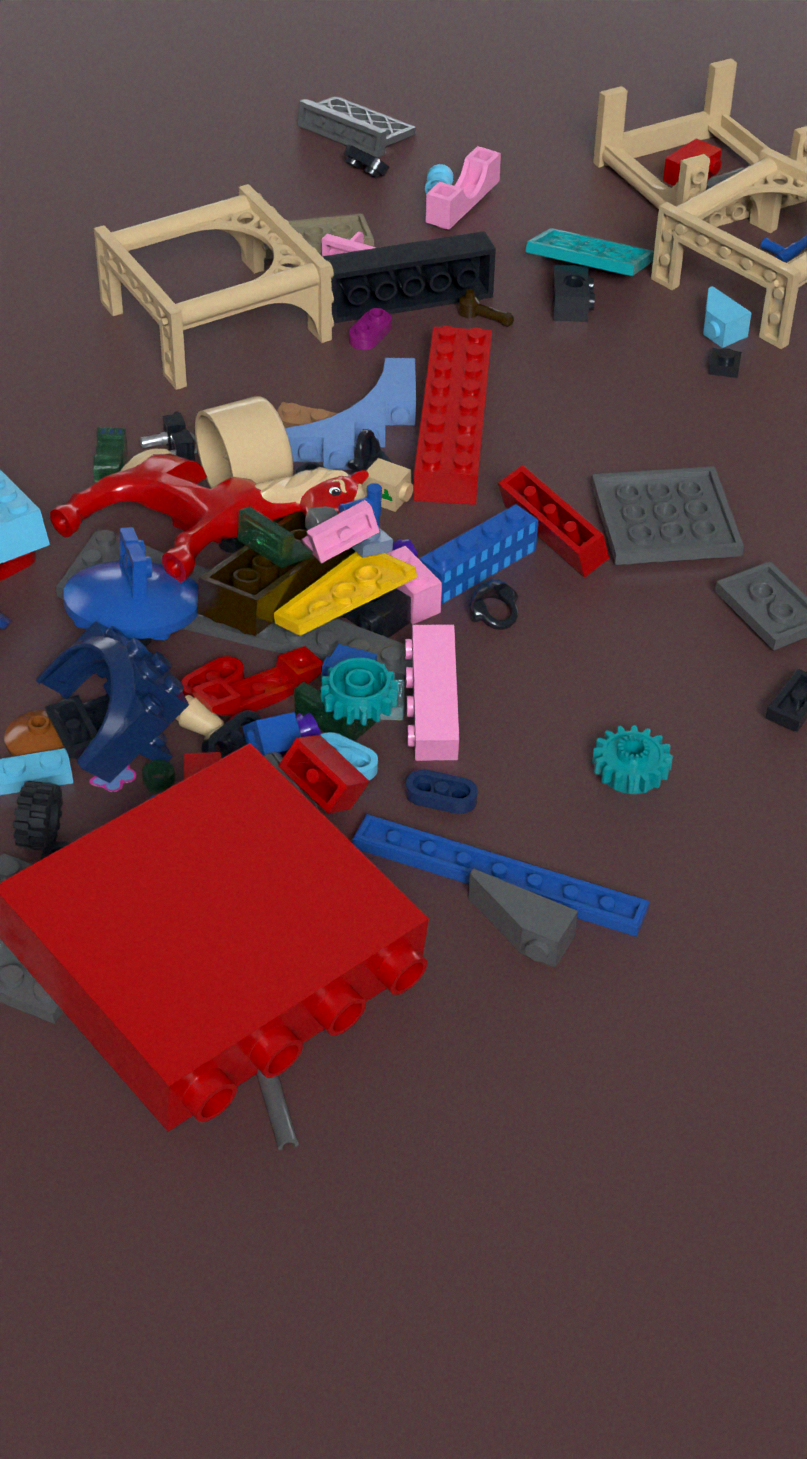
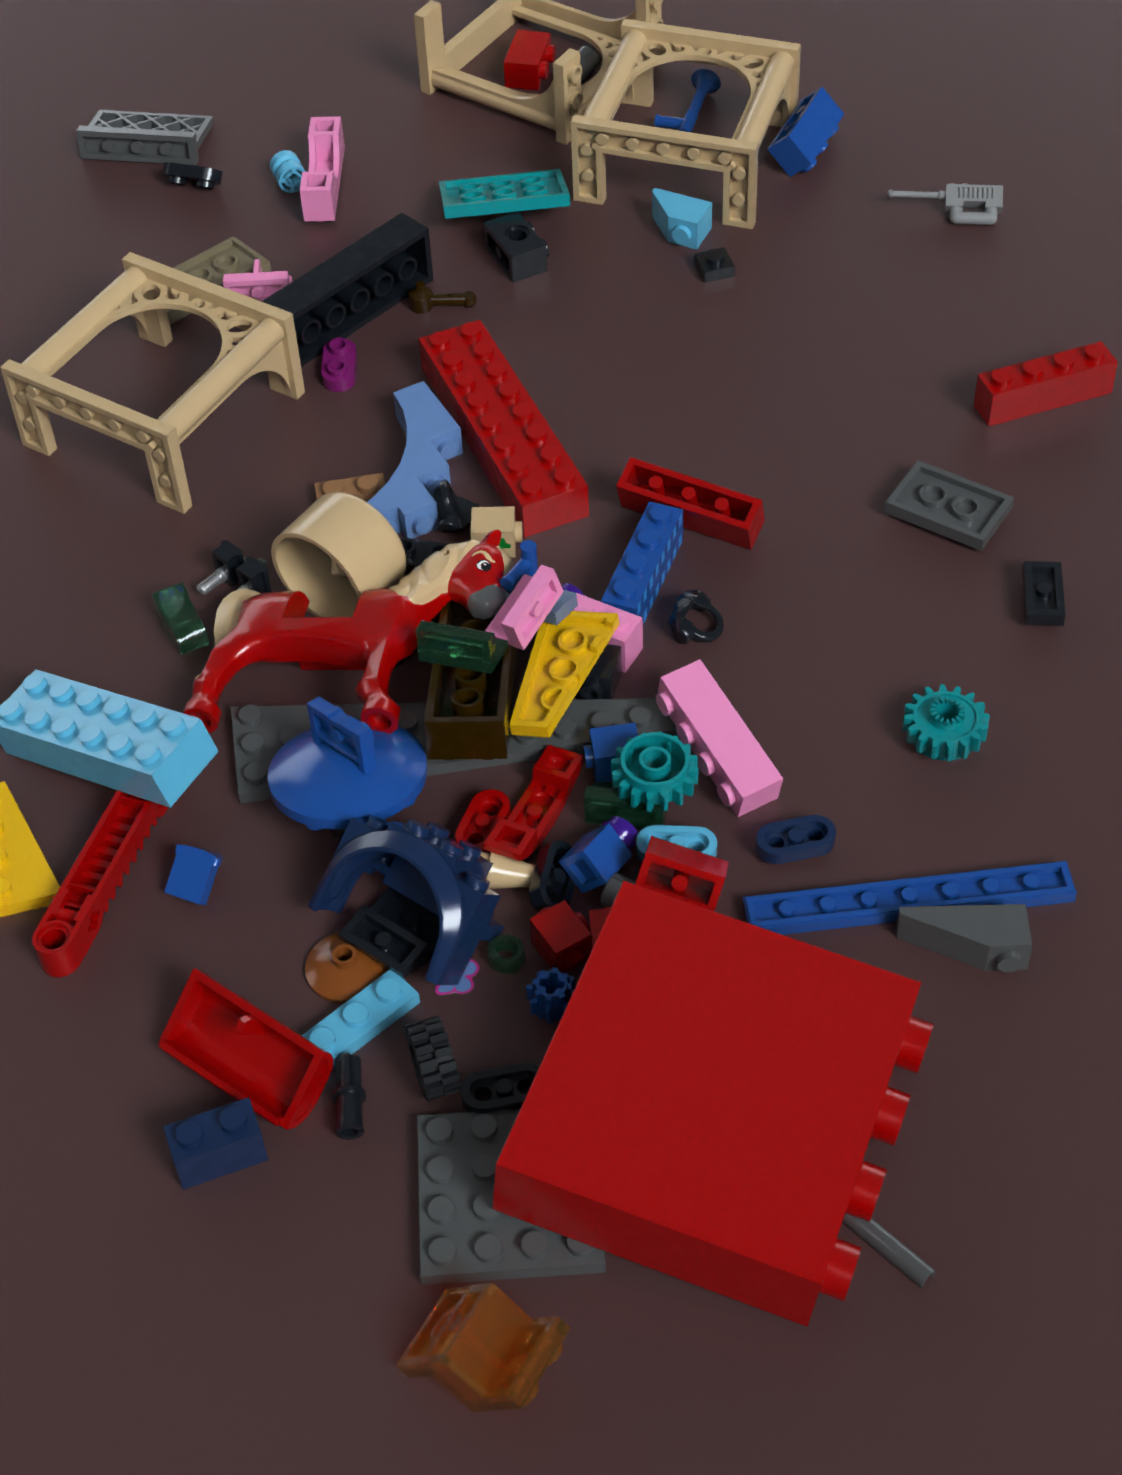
camera: 25 degrees left, 5 degrees up
(666, 515) = (784, 451): dark grey plate -> none

